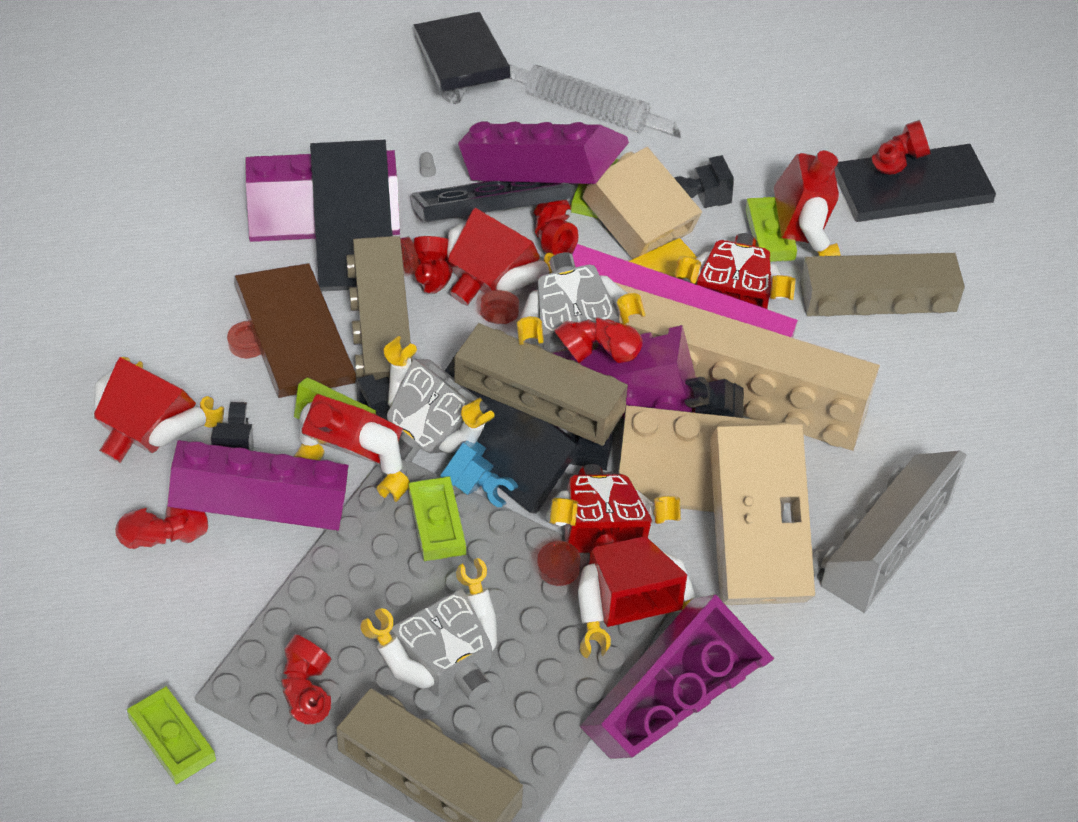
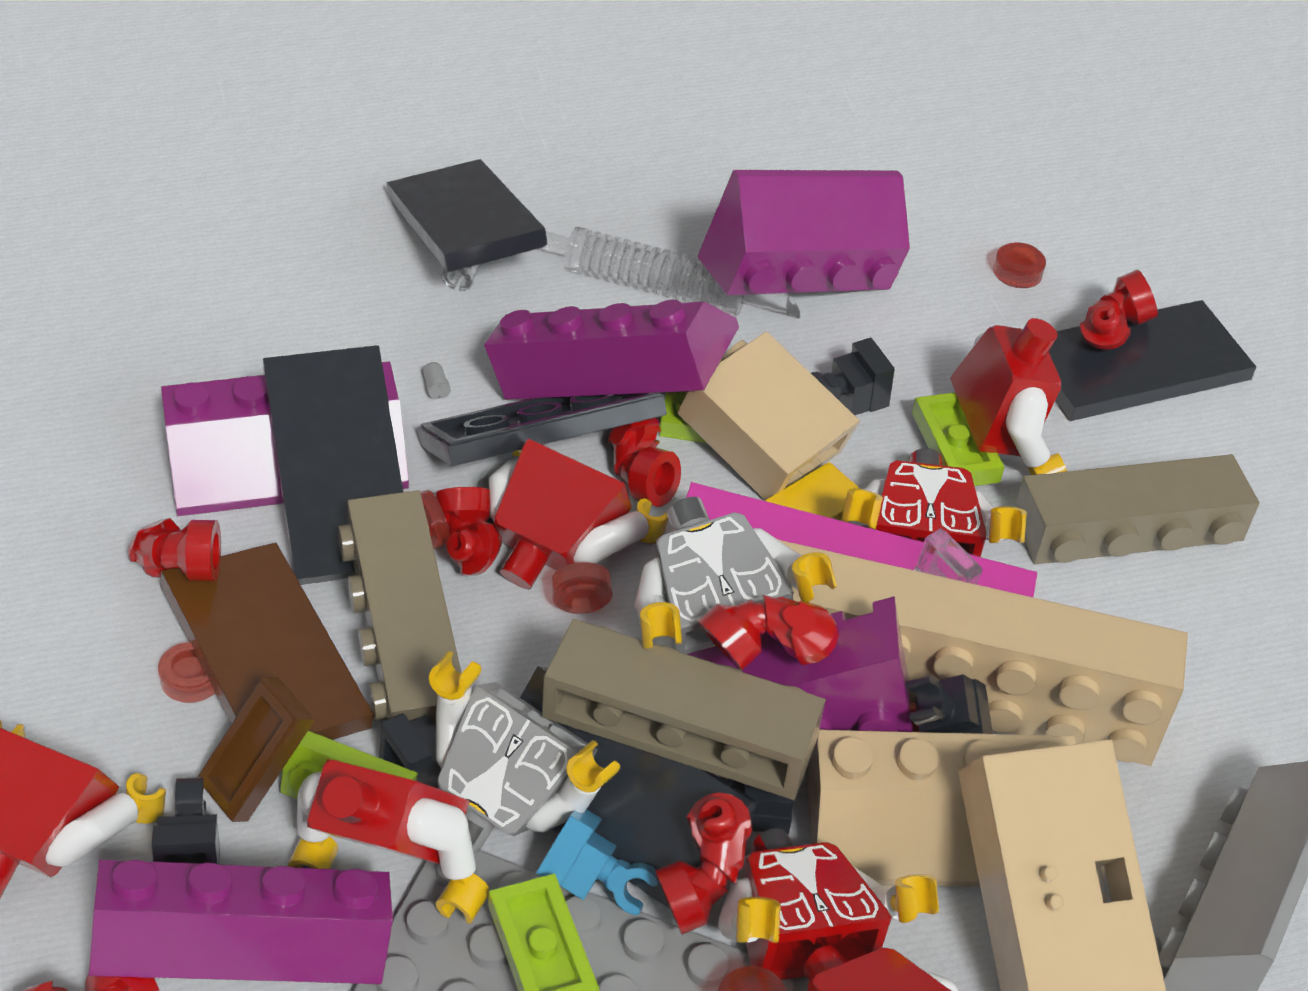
camera: 10 degrees left, 5 degrees down
(253, 262) = (166, 546): none -> red arm
(279, 387) = (255, 749): none -> reddish brown tile
(553, 459) = (720, 833): none -> red arm
(692, 78) = (807, 231): none -> magenta slope
(732, 306) = (947, 559): none -> clear tile
(846, 110) = (1019, 265): none -> clear red tile

